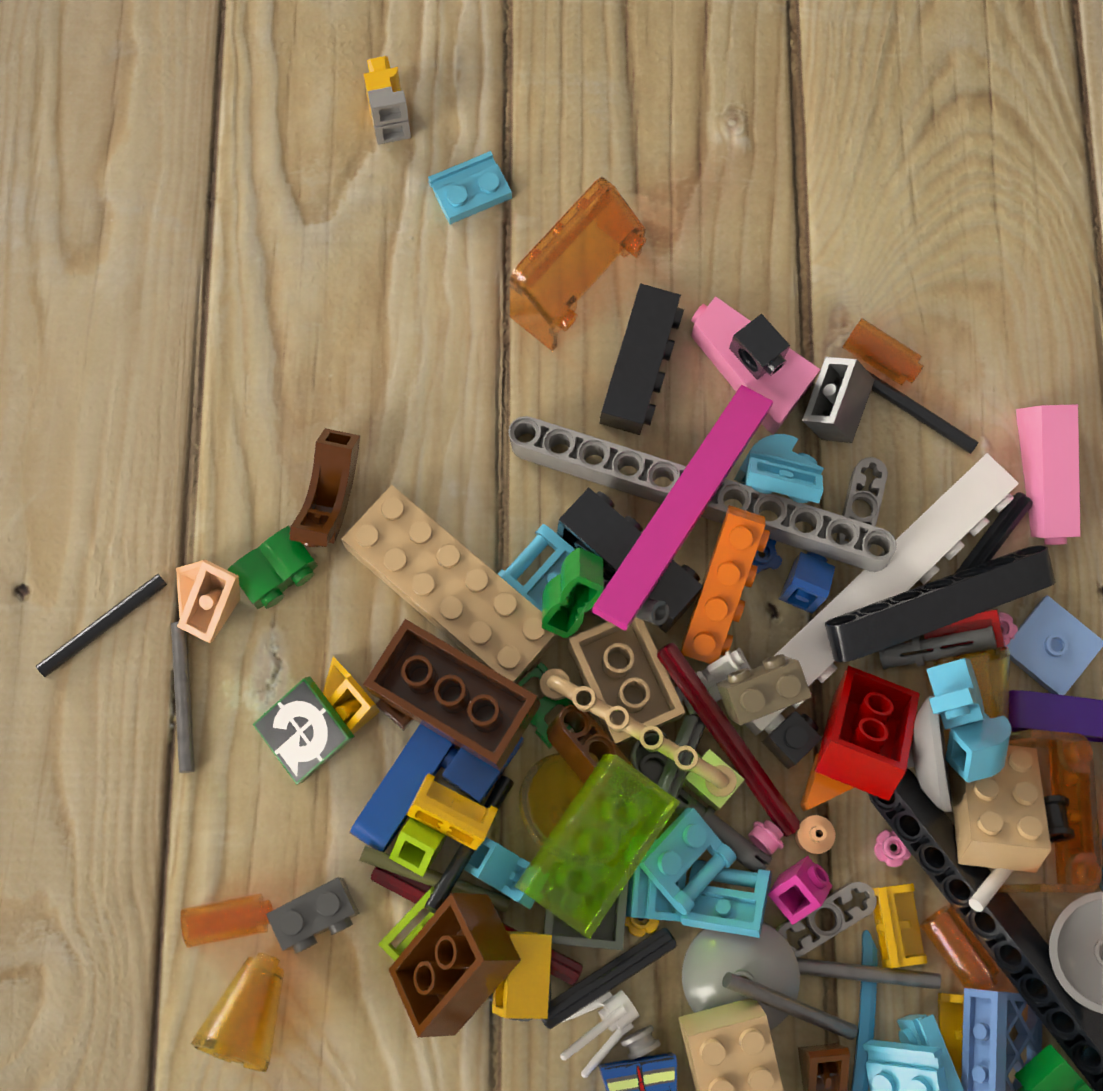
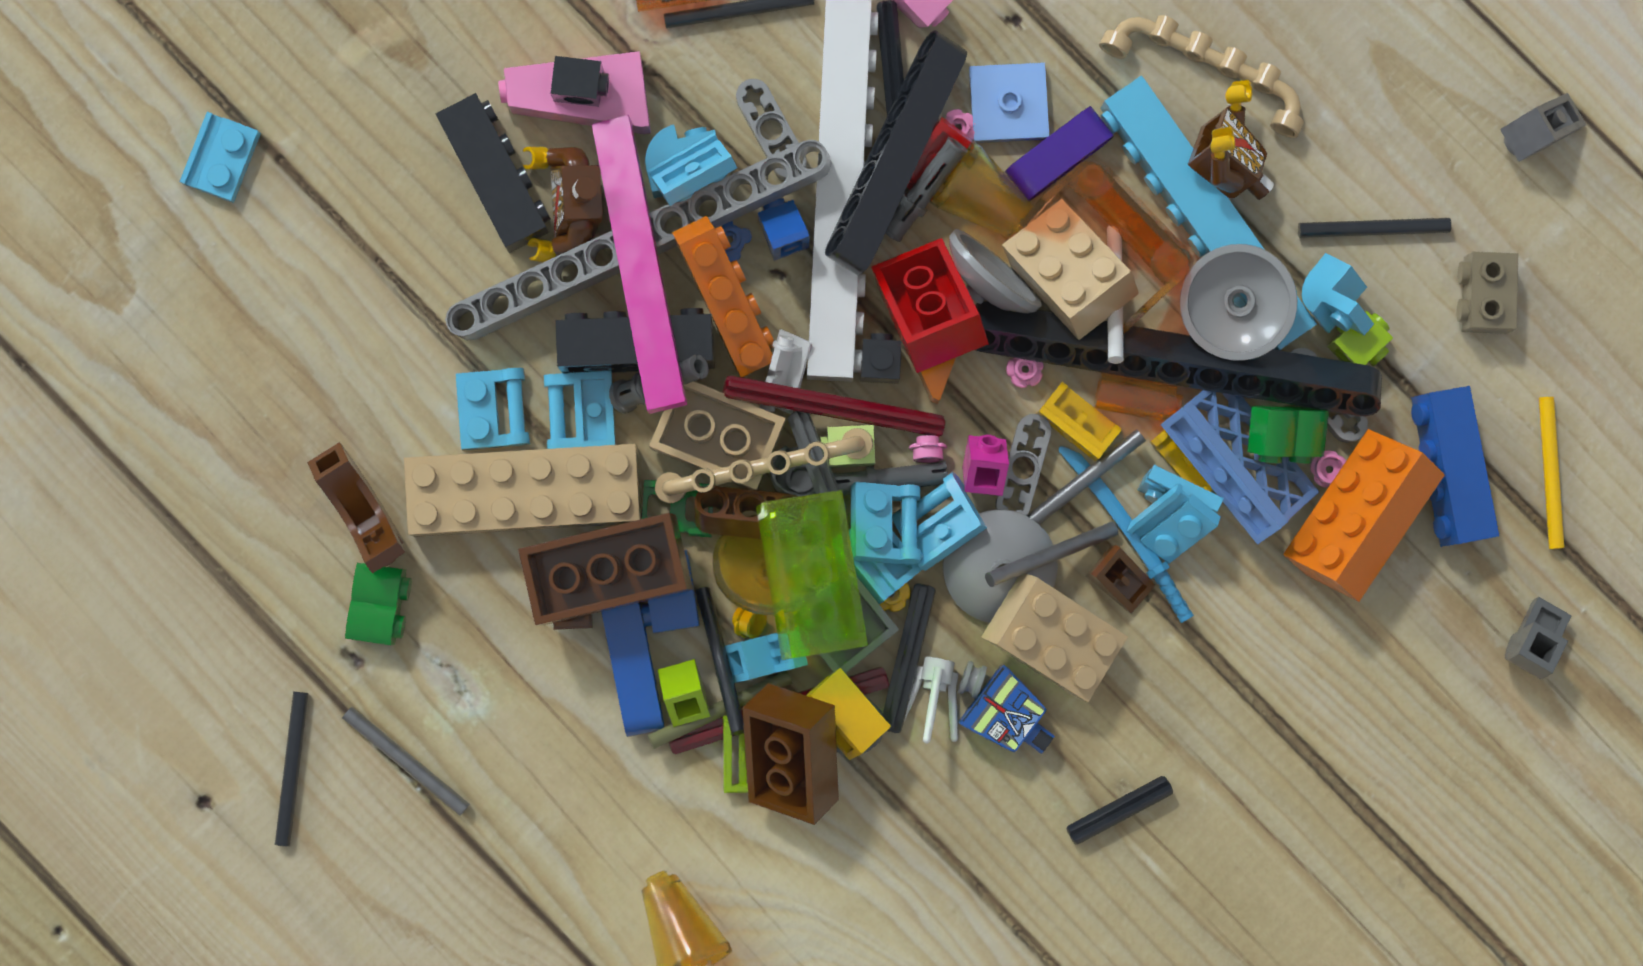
camera: 45 degrees left, 10 degrees up
(205, 598) = (349, 675): light nougat slope -> none
(225, 920) = (600, 881): clear orange brick -> none
(303, 730) = (520, 698): tile -> none
(313, 913) = (657, 817): dark grey brick -> none
(348, 697) = (530, 654): yellow slope -> none
(386, 101) = (85, 153): light grey hips -> none
(451, 813) = (687, 652): yellow hinge -> none
(476, 506) = (480, 409): none -> medium azure plate
(516, 836) = (748, 623): none -> yellow plate
(572, 260) = (370, 148): clear orange windscreen -> none
(572, 592) = (620, 411): green brick -> none
(681, 424) = (574, 199): none -> reddish brown torso
(763, 689) = (825, 348): dark tan brick -> none
(807, 838) = (957, 422): light nougat tile -> none
(838, 399) = (675, 61): dark grey brick -> none
(956, 693) = (965, 219): medium azure brick -> none
(979, 748) = (1013, 240): medium azure brick -> none
(1057, 818) = (1119, 239): black bush -> none

